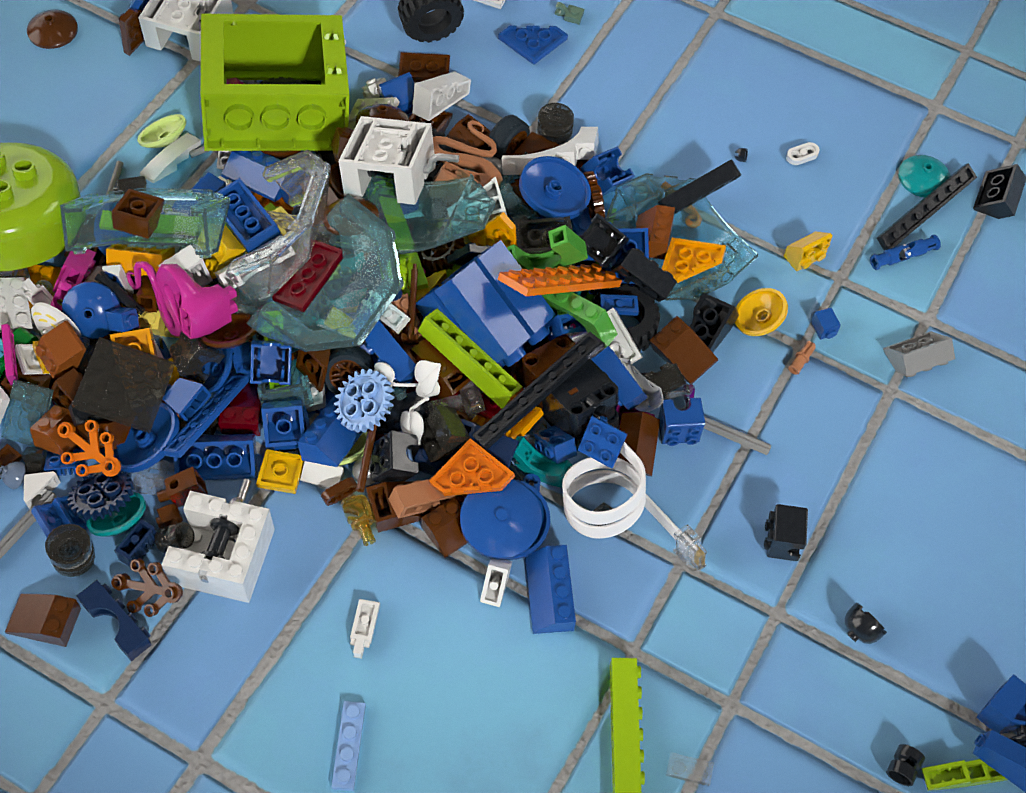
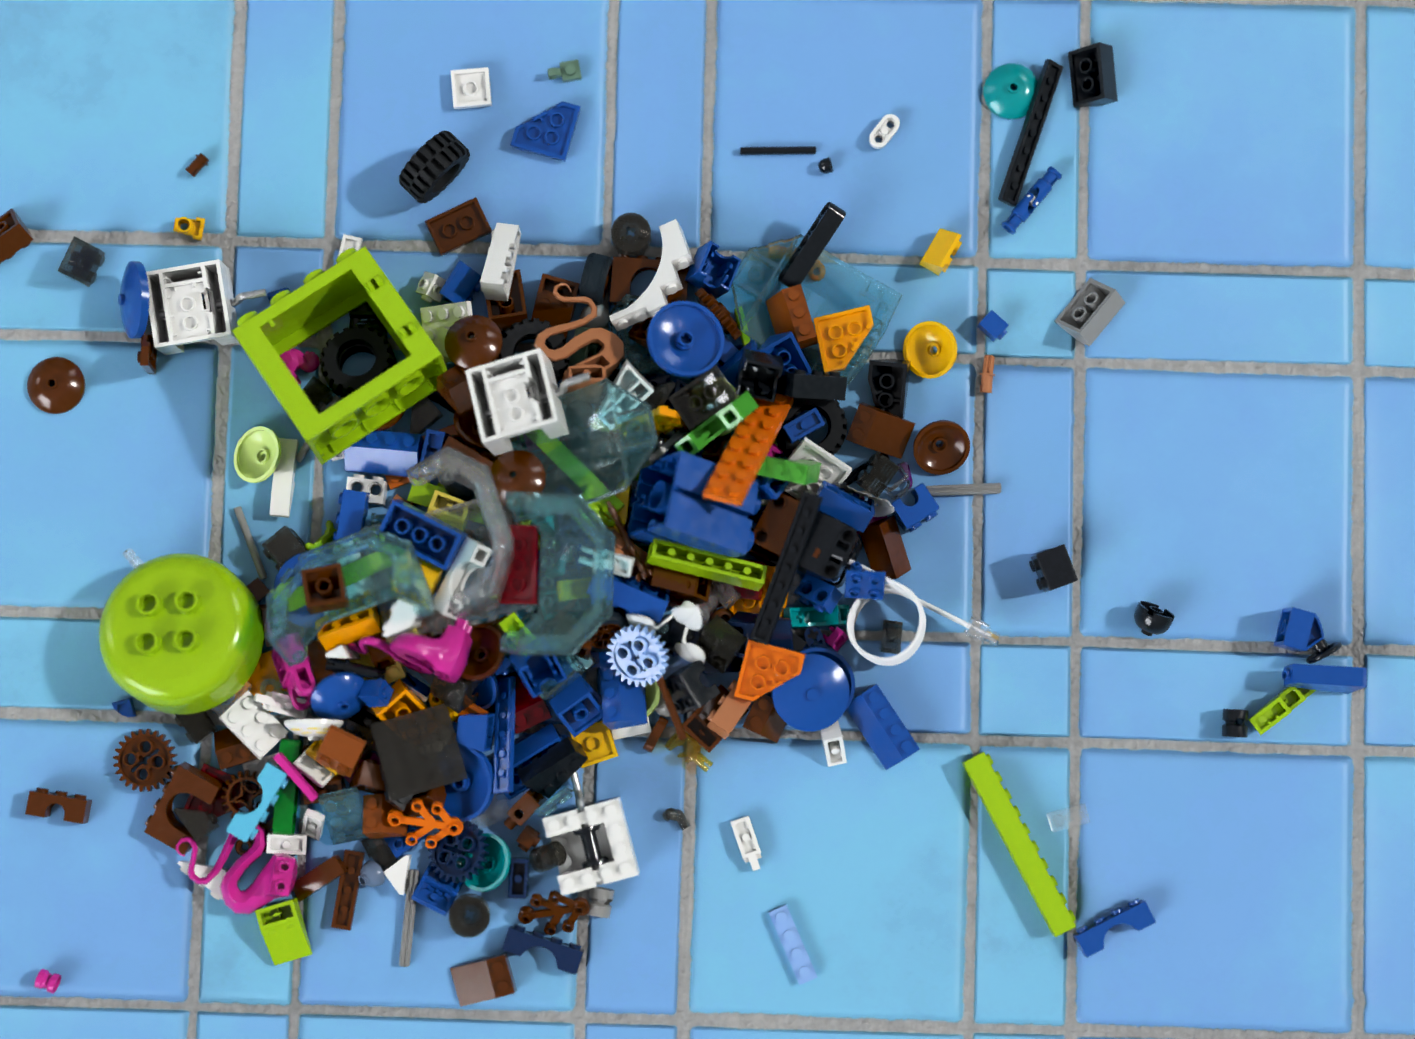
camera: 25 degrees left, 25 degrees up
(192, 606) = (599, 901): none -> light grey wheel
(214, 484) = (550, 805): none -> clear light blue plate
(230, 465) = (553, 768): none -> black wedge
(315, 571) = (676, 815): none -> clear smoke arm
(552, 494) = (836, 639): none -> dark pink tile
(708, 130) = (777, 150): none -> black bar
(746, 386) = (945, 456): none -> reddish brown dish

